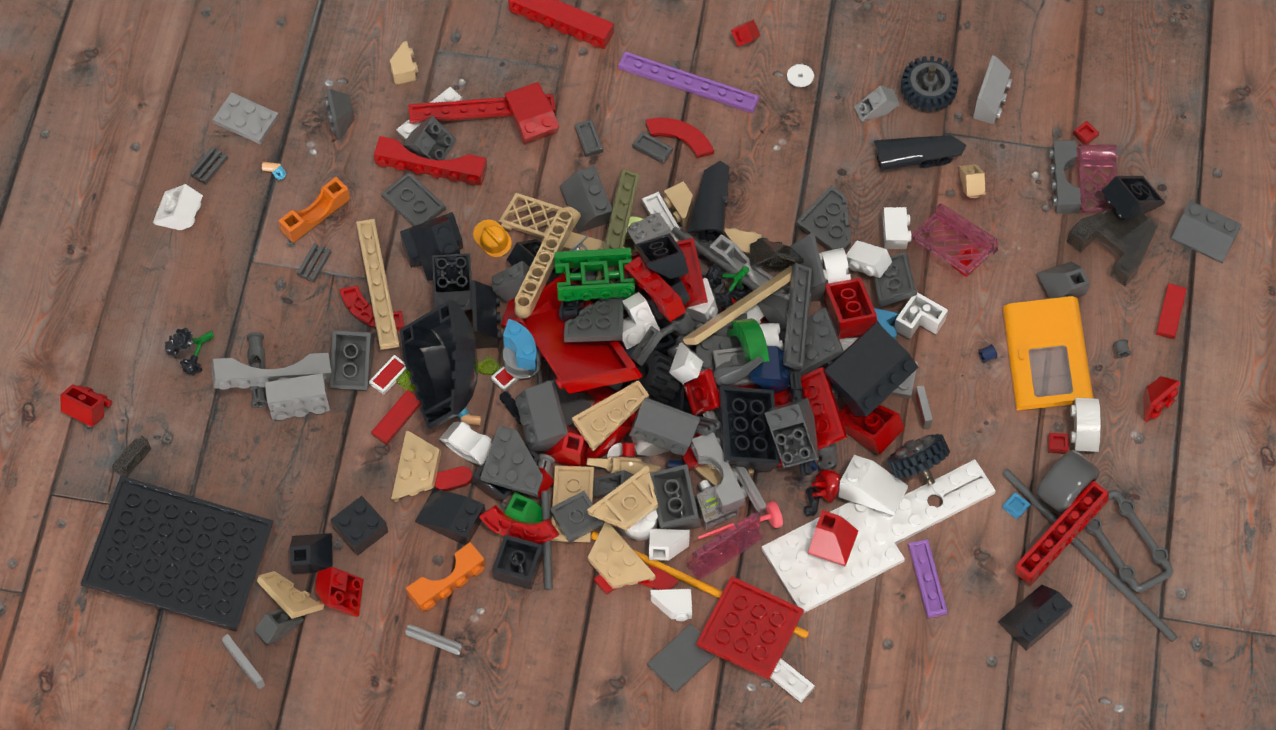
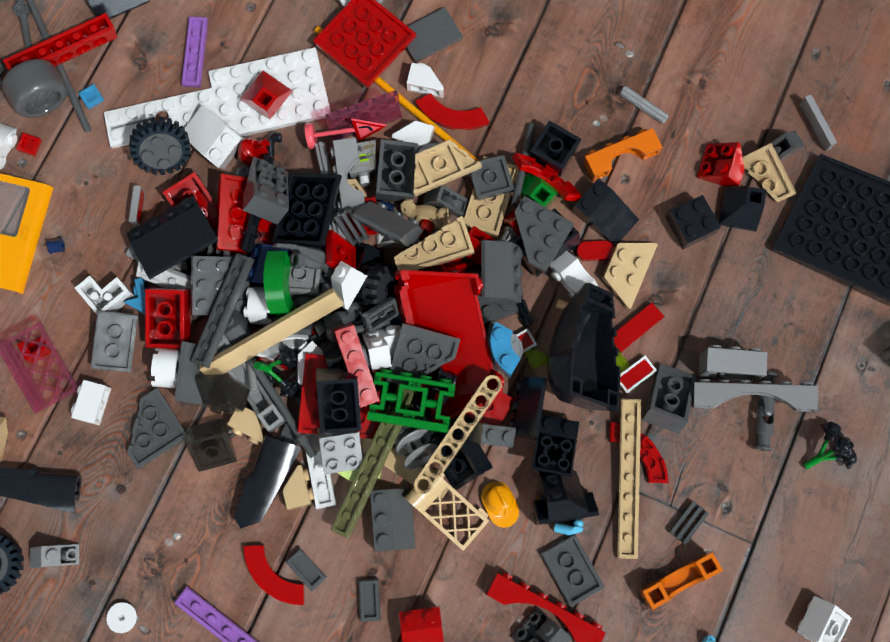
camera: 165 degrees left, 15 degrees up
(617, 560) = (464, 127): tan wing -> none
(773, 220) = (210, 444): none -> clear smoke slope
(868, 259) = (131, 370): white brick -> none

